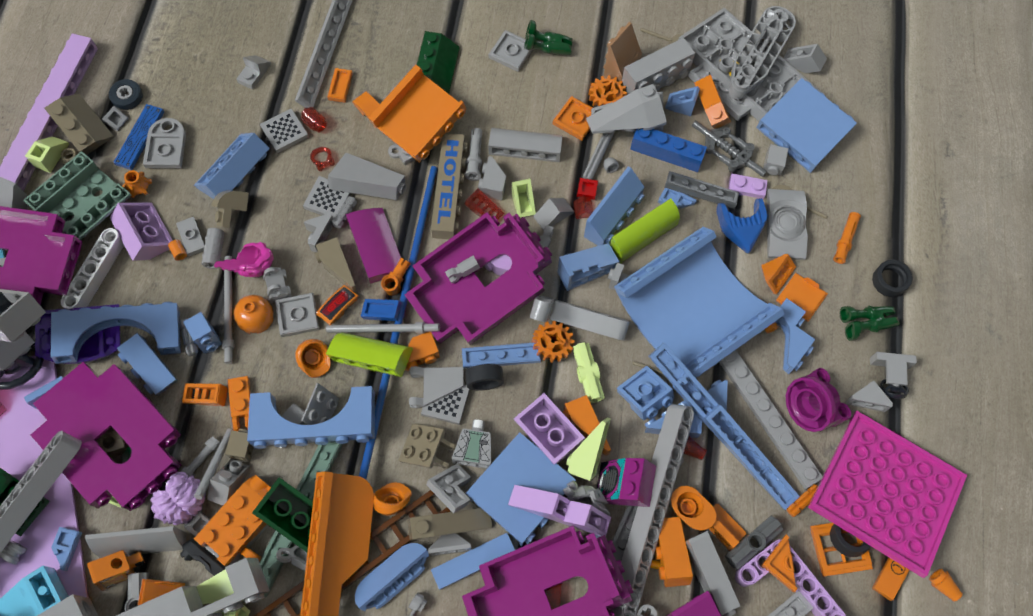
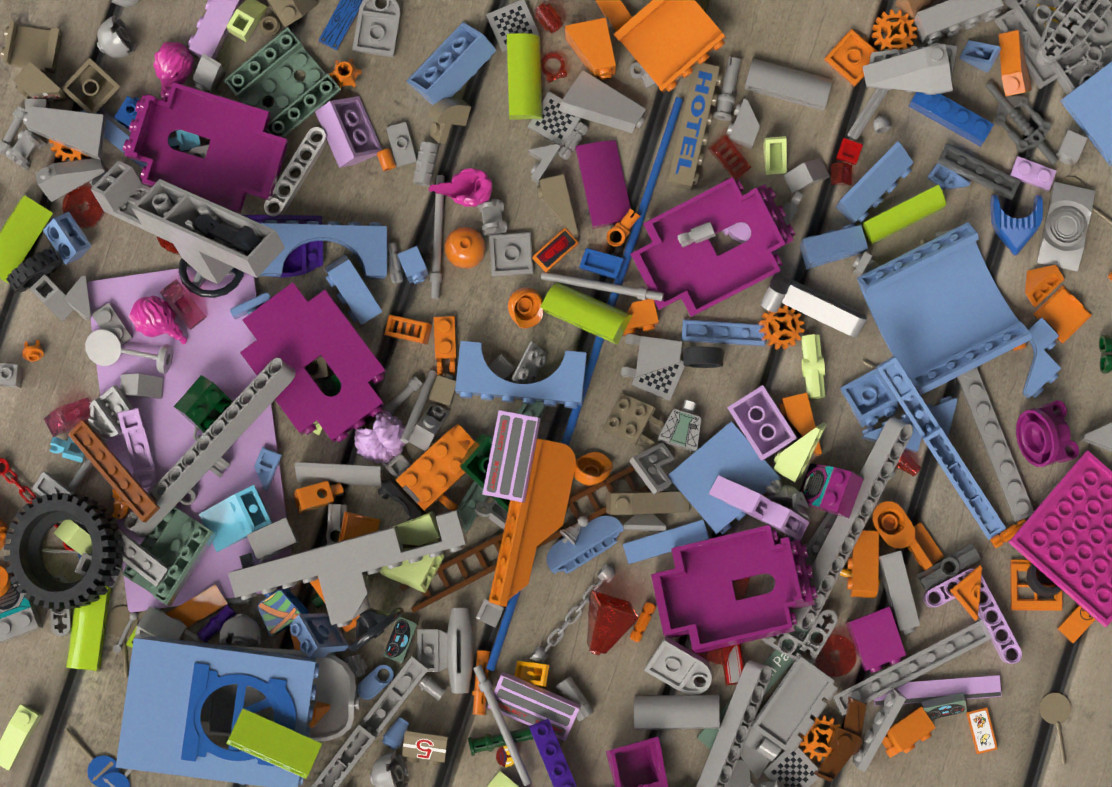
camera: 10 degrees right, 15 degrees up
(295, 165) = (524, 76): none -> lime brick
(303, 494) = (511, 456): none -> dark grey tile
(351, 132) = (593, 47): none -> orange slope
(377, 565) = (571, 533): none -> light grey piece

